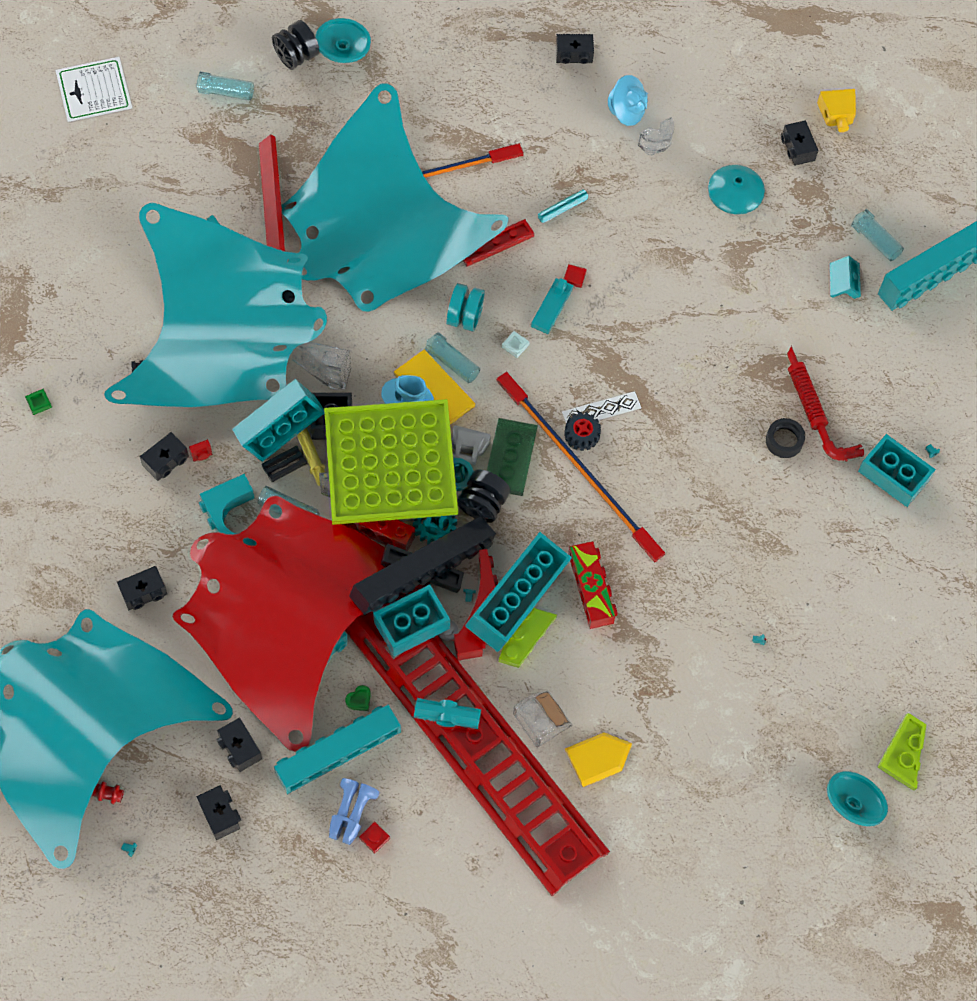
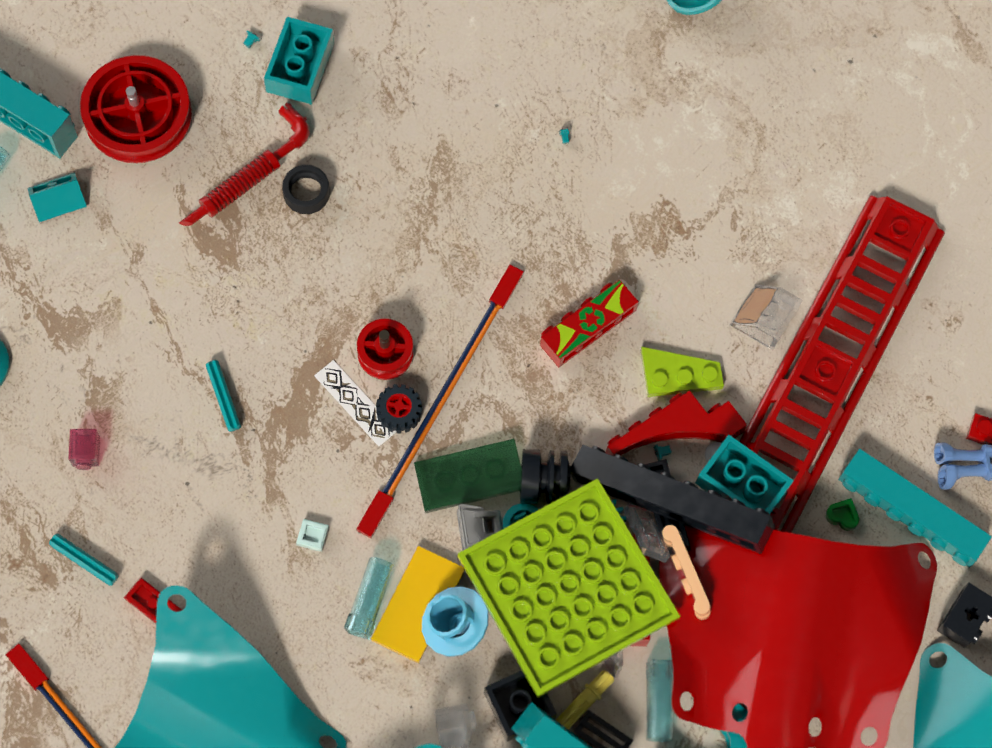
camera: 115 degrees left, 5 degrees up
(362, 544) = (682, 561): none -> light nougat plate
(402, 535) = (646, 532): none -> clear tile
(447, 713) = (825, 402): teal piece -> none
(465, 307) = (297, 606): teal wheel -> none
(518, 592) = (648, 384): teal brick -> none
(552, 305) = (238, 514): teal hinge -> none
(575, 275) = (183, 504): red tile -> none
(598, 757) = (776, 245): yellow tile -> none
(631, 437) = (385, 349): none -> red wheel
(641, 230) = (84, 448): none -> clear pink brick
(644, 327) = (223, 395): none -> teal axle
(896, 348) = (136, 109): none -> red wheel

